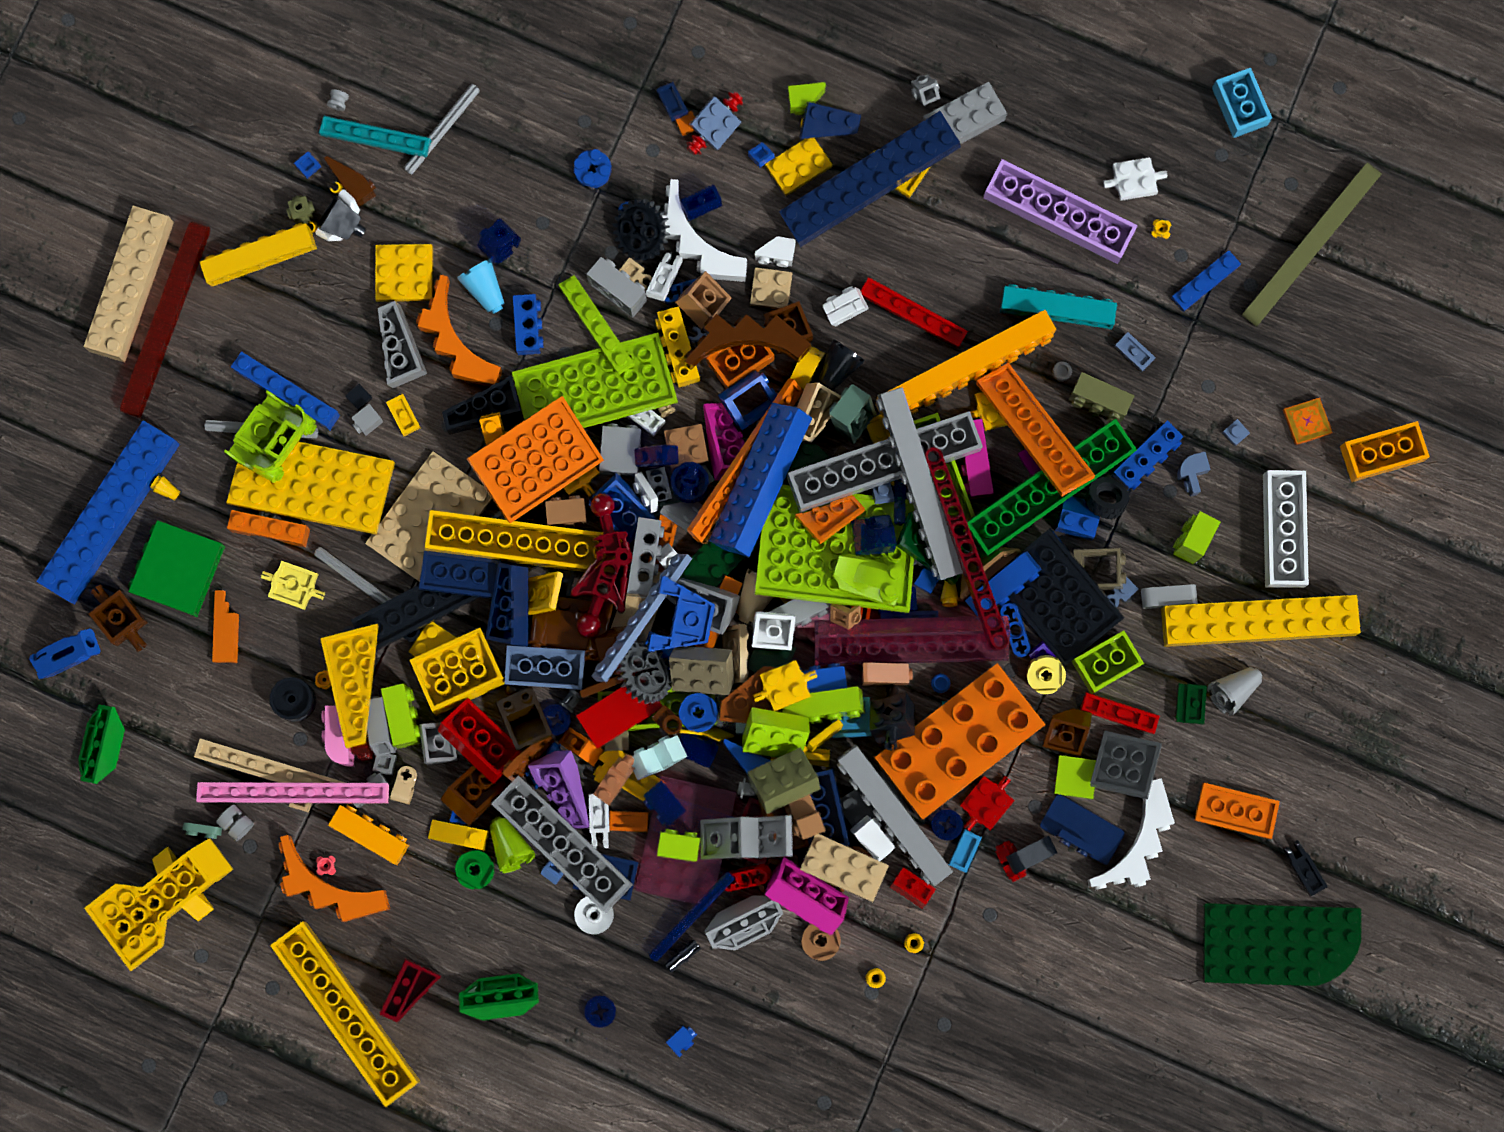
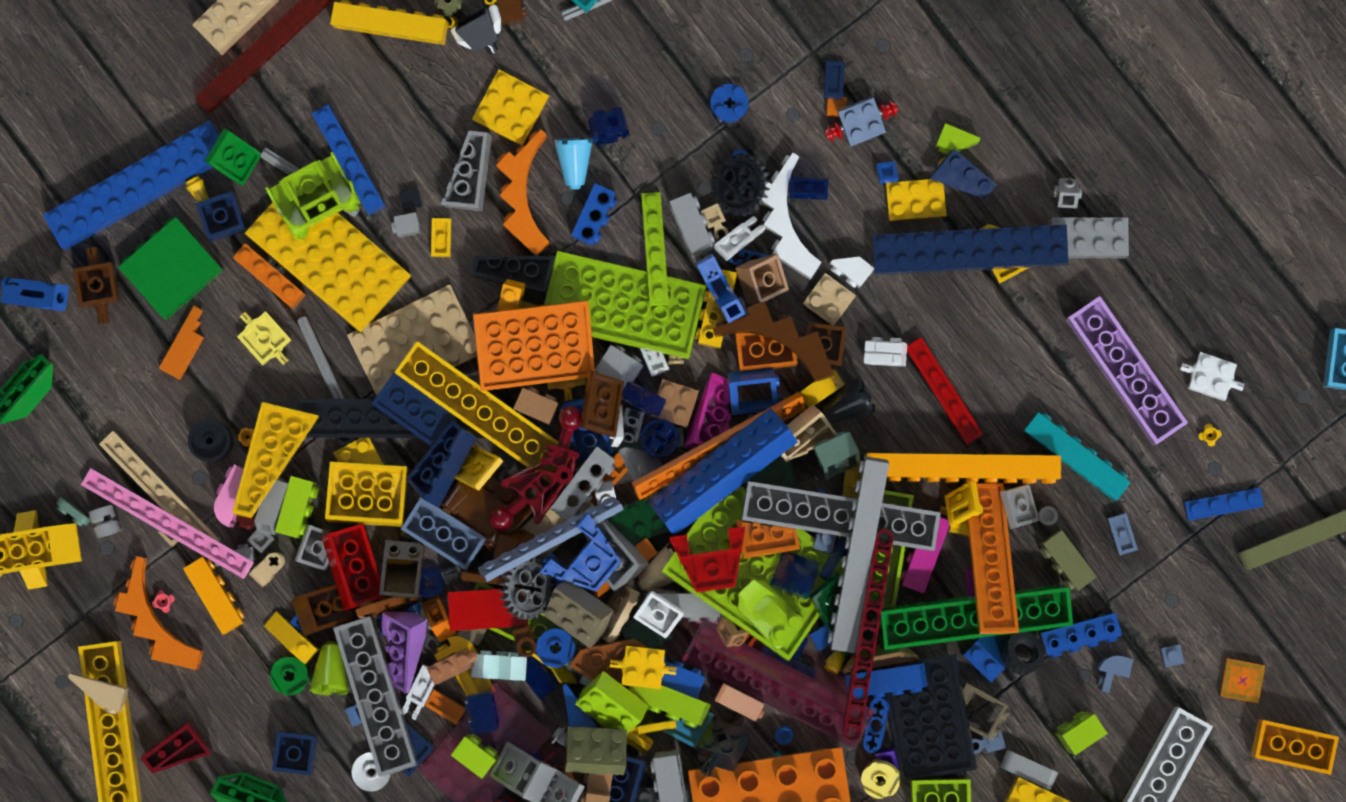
camera: 30 degrees right, 5 degrees up
(181, 440) = (233, 157): none -> green plate
(198, 498) = (221, 216): none -> dark blue brick
(316, 973) = (102, 693): none -> tan slope
(516, 934) = (295, 753): none -> dark blue brick
(623, 478) = (602, 404): none -> reddish brown tile
(668, 324) = (720, 289): none -> blue arch
(797, 567) = (711, 569): none -> red wing
(979, 395) = (960, 499): none -> yellow plate
(1033, 374) = (1019, 506): none -> light grey tile

